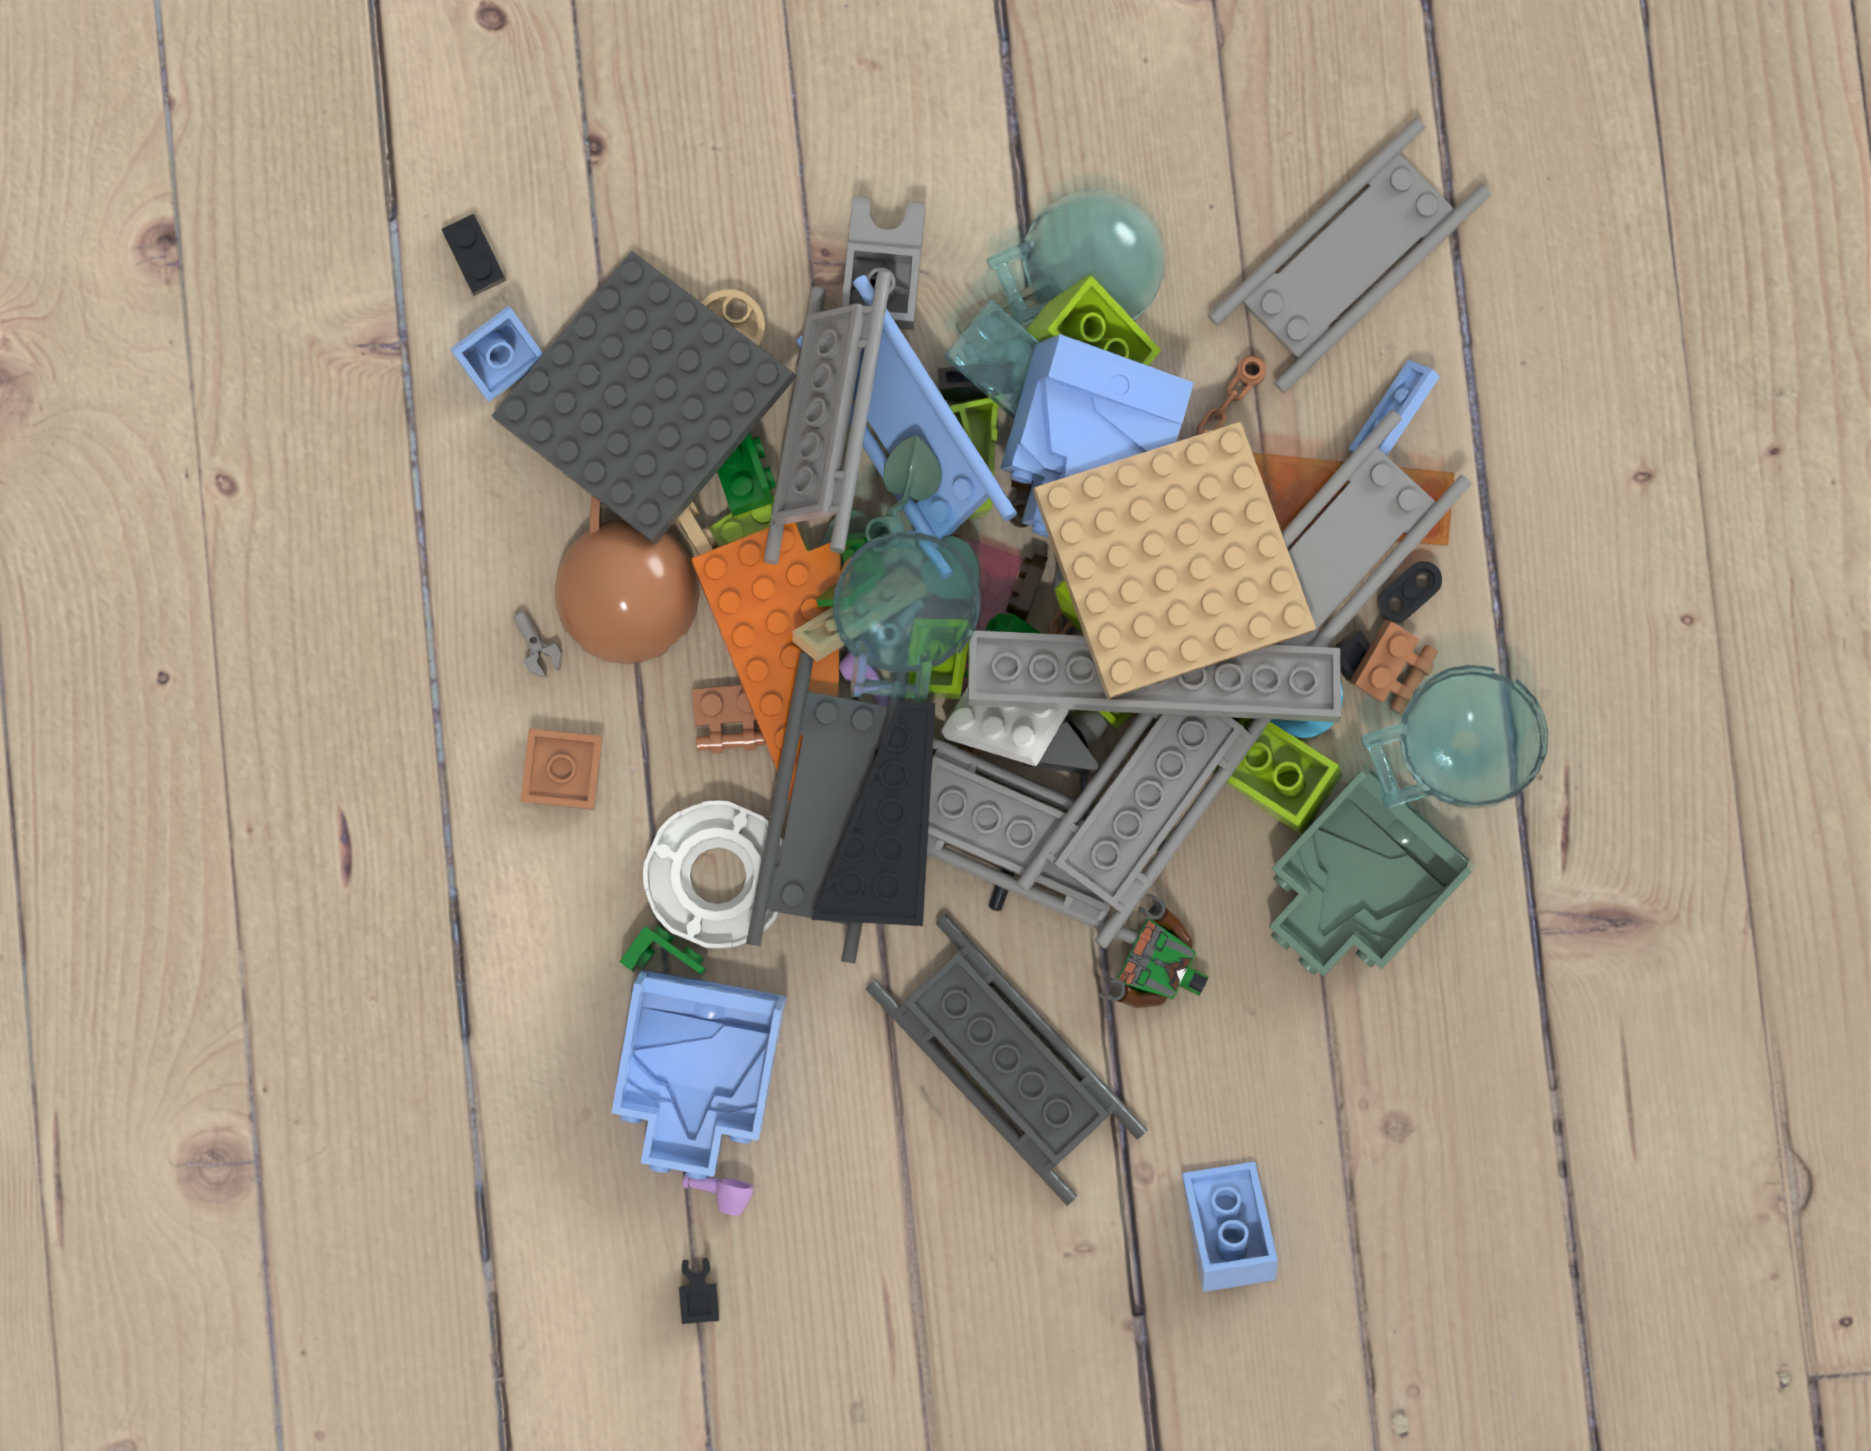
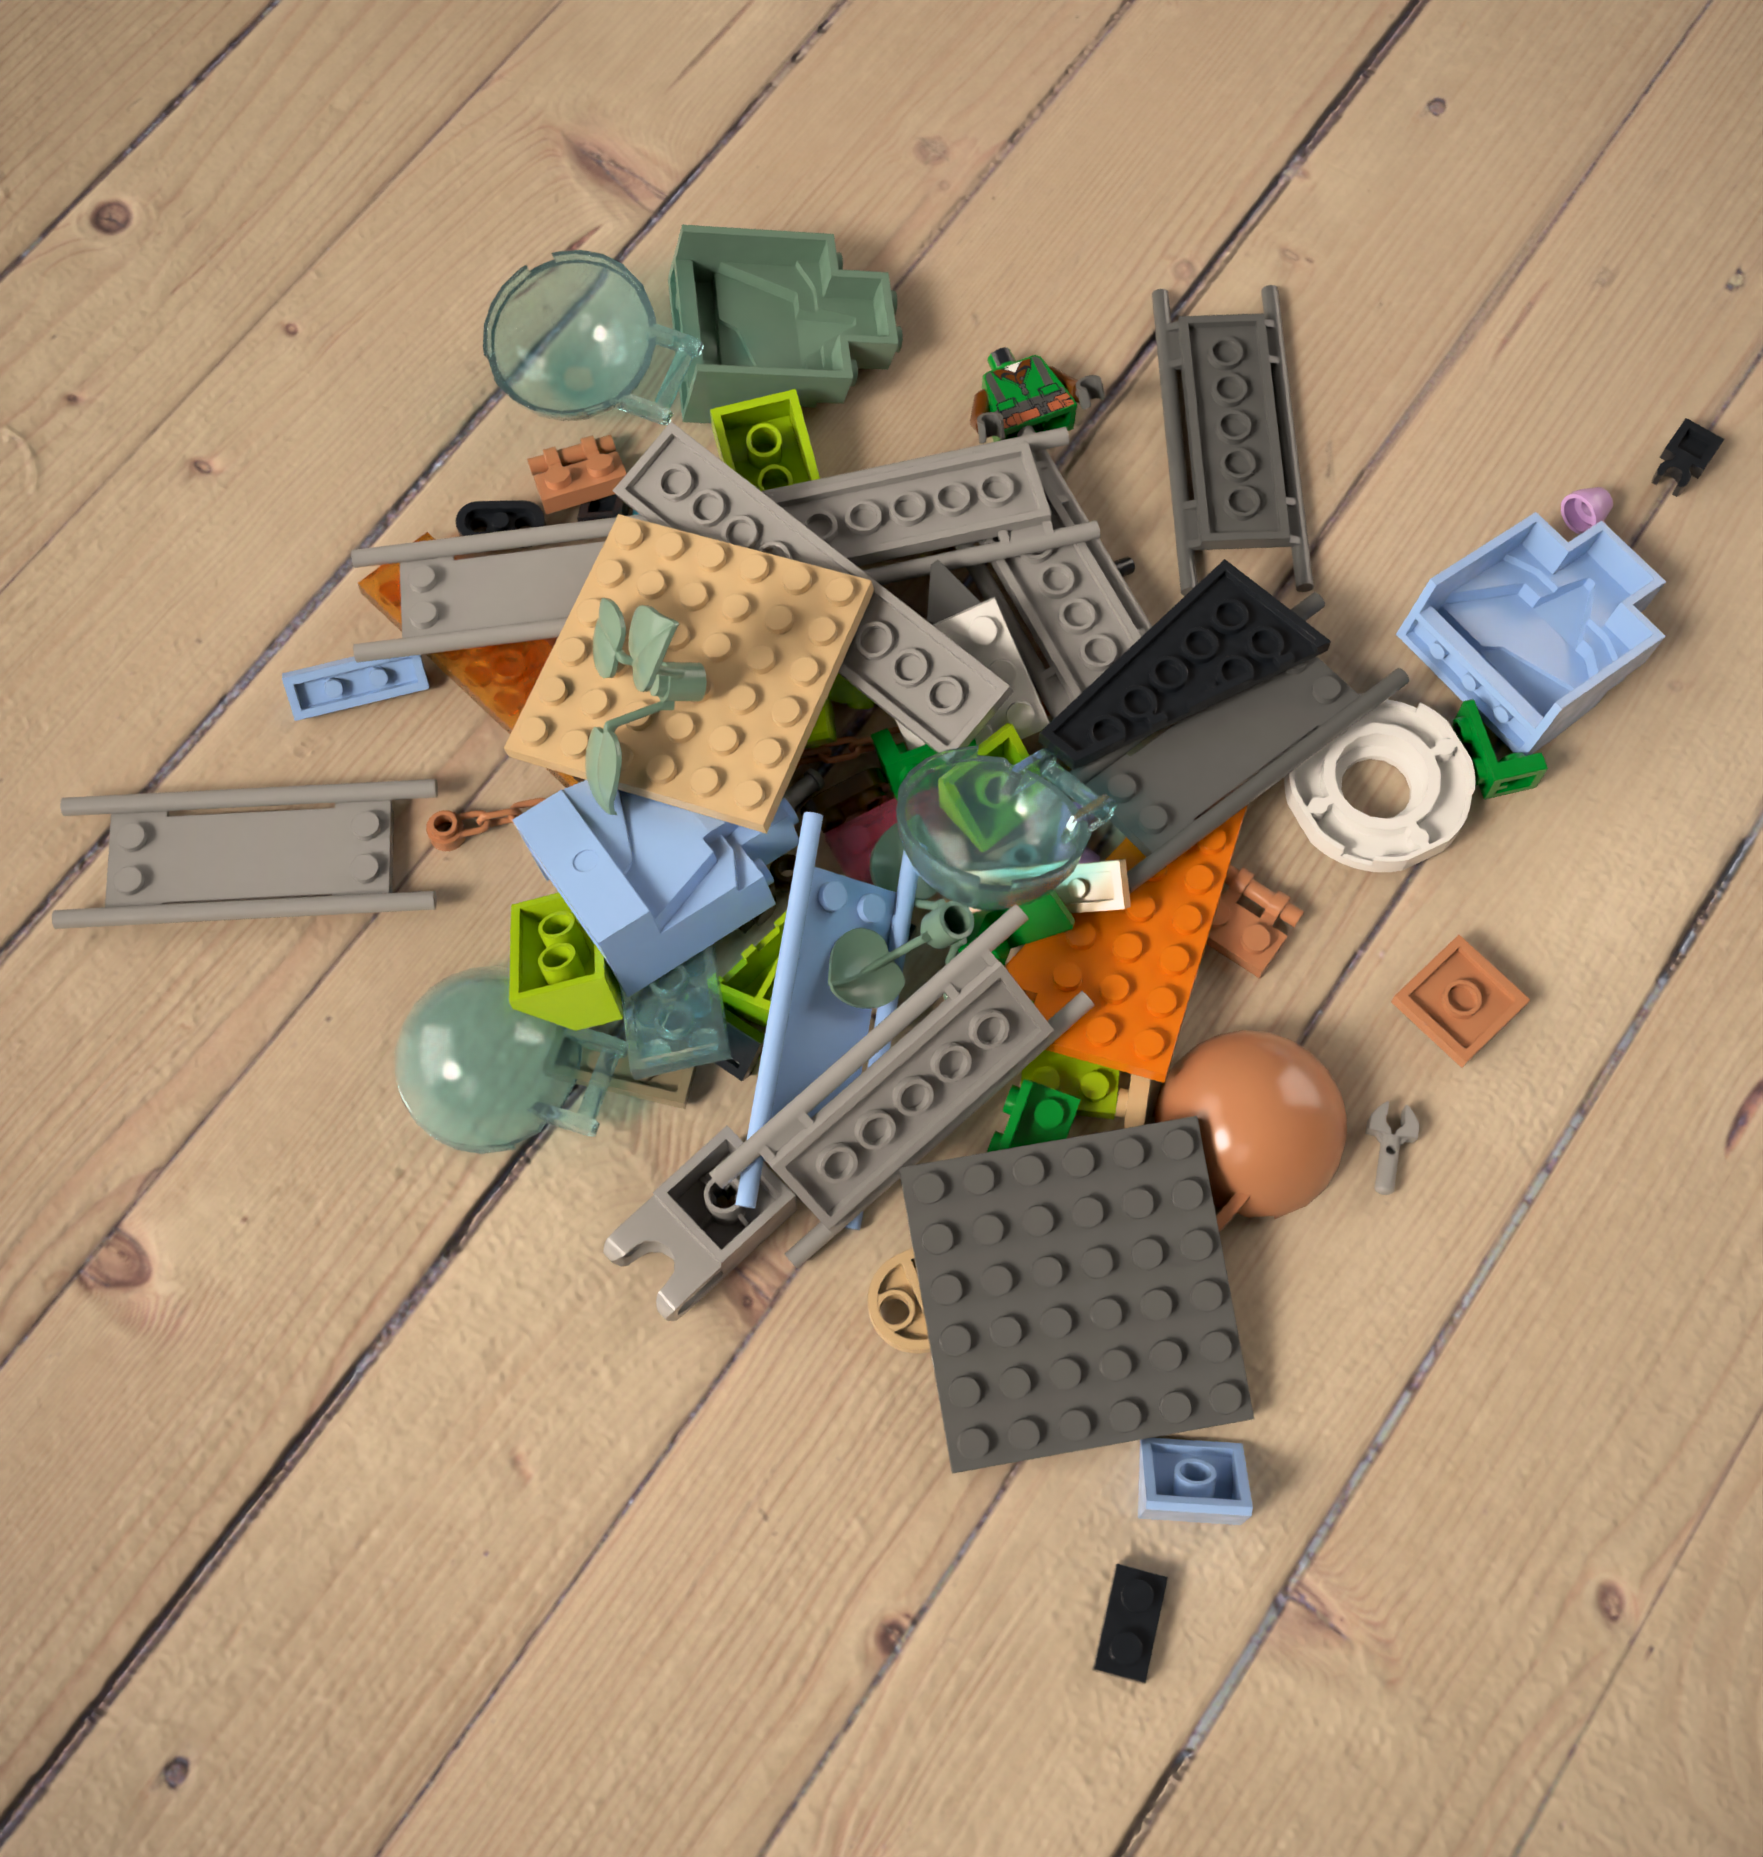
camera: 140 degrees left, 15 degrees down
(1170, 504) = (670, 681): none -> plant
(1229, 1227) = (1149, 166): light blue slope -> none

